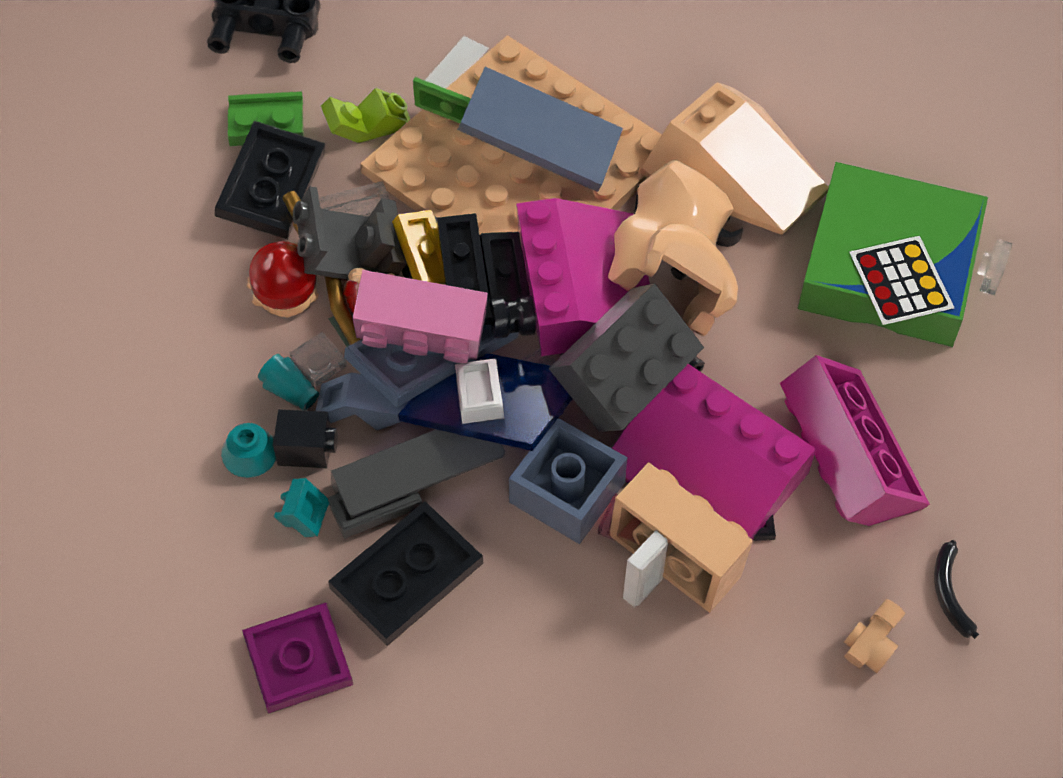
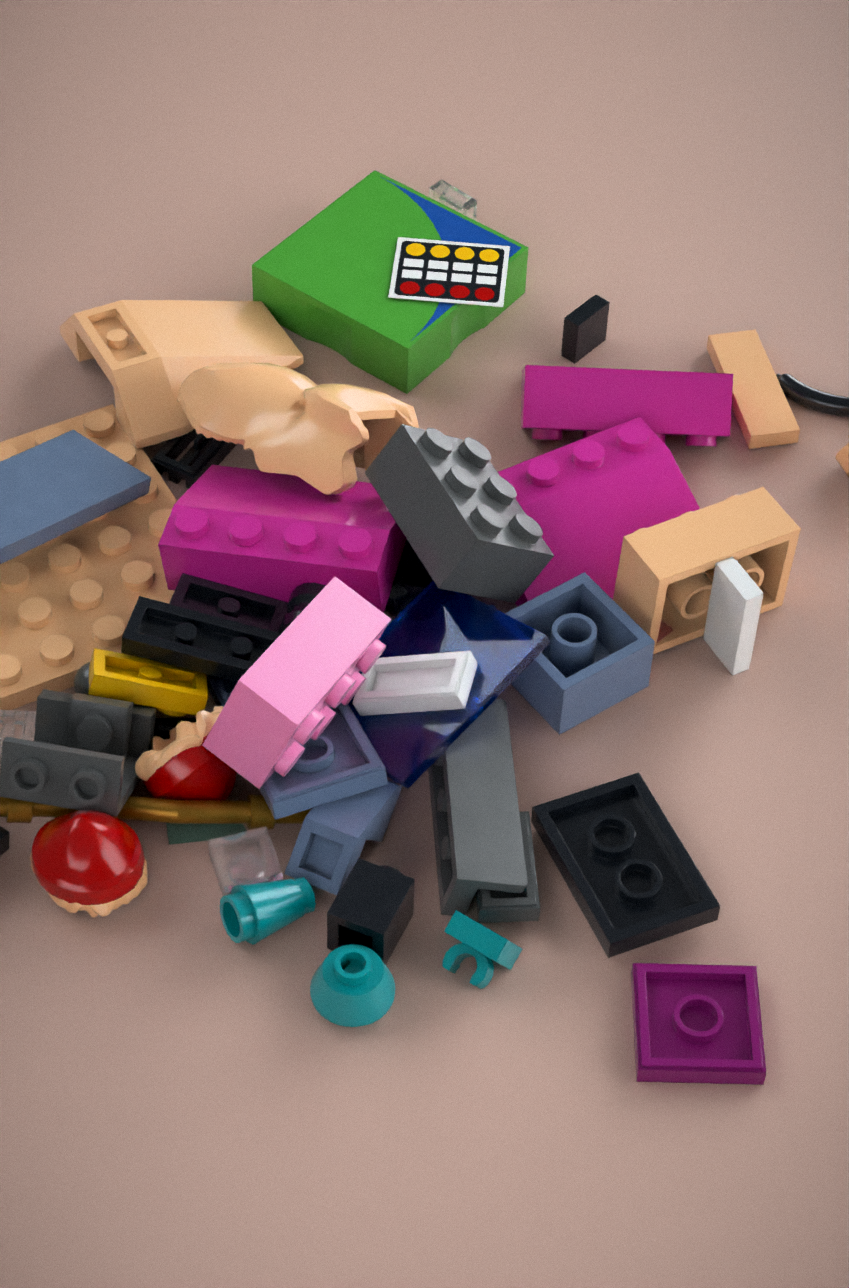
camera: 70 degrees left, 10 degrees down
(918, 392) = (585, 328): none -> black tile
(928, 528) = (756, 392): none -> light nougat tile

